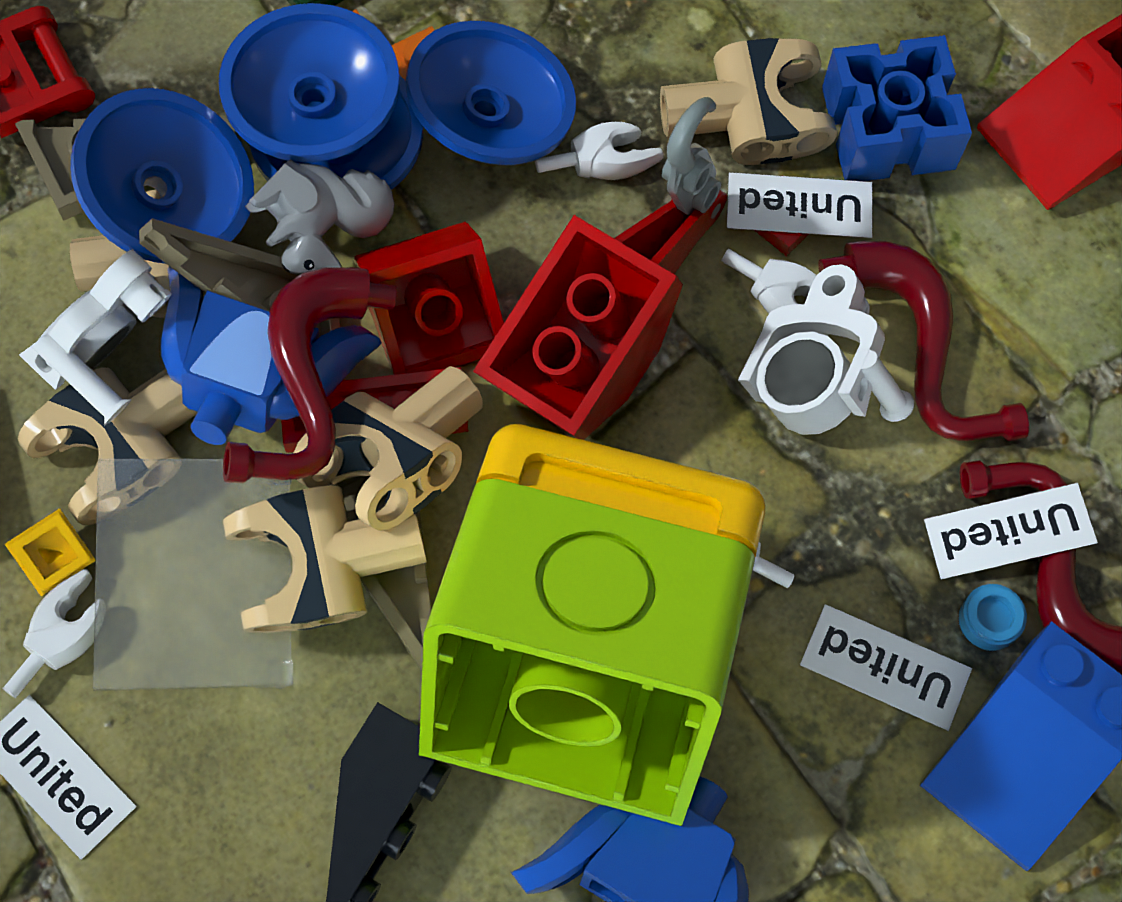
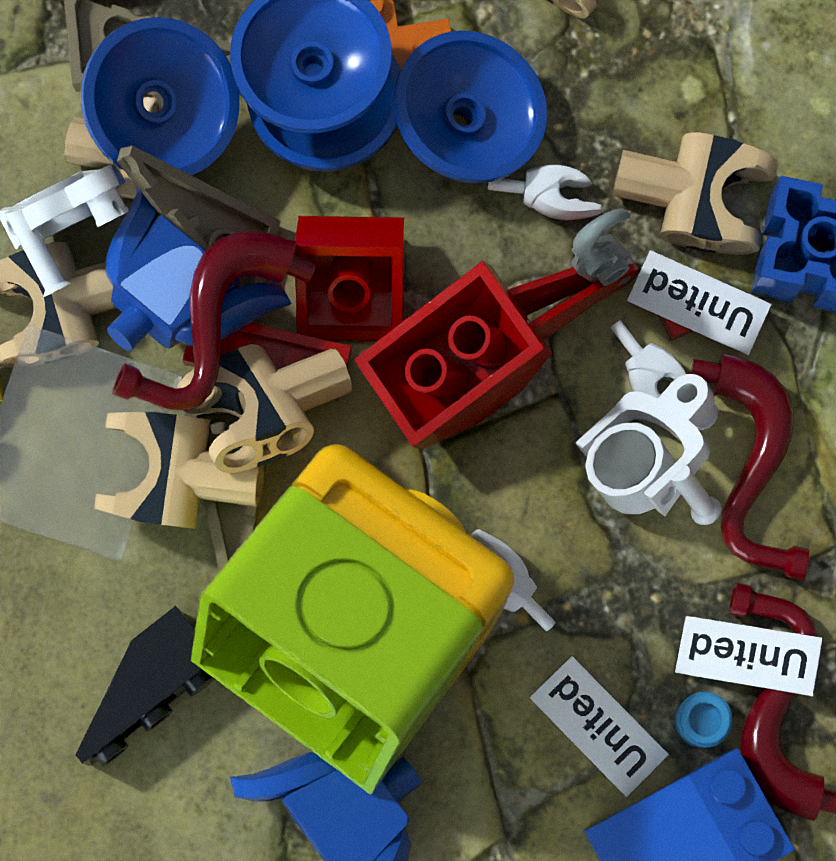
camera: 25 degrees right, 10 degrees up
(313, 199) = (280, 159): light grey animal -> none

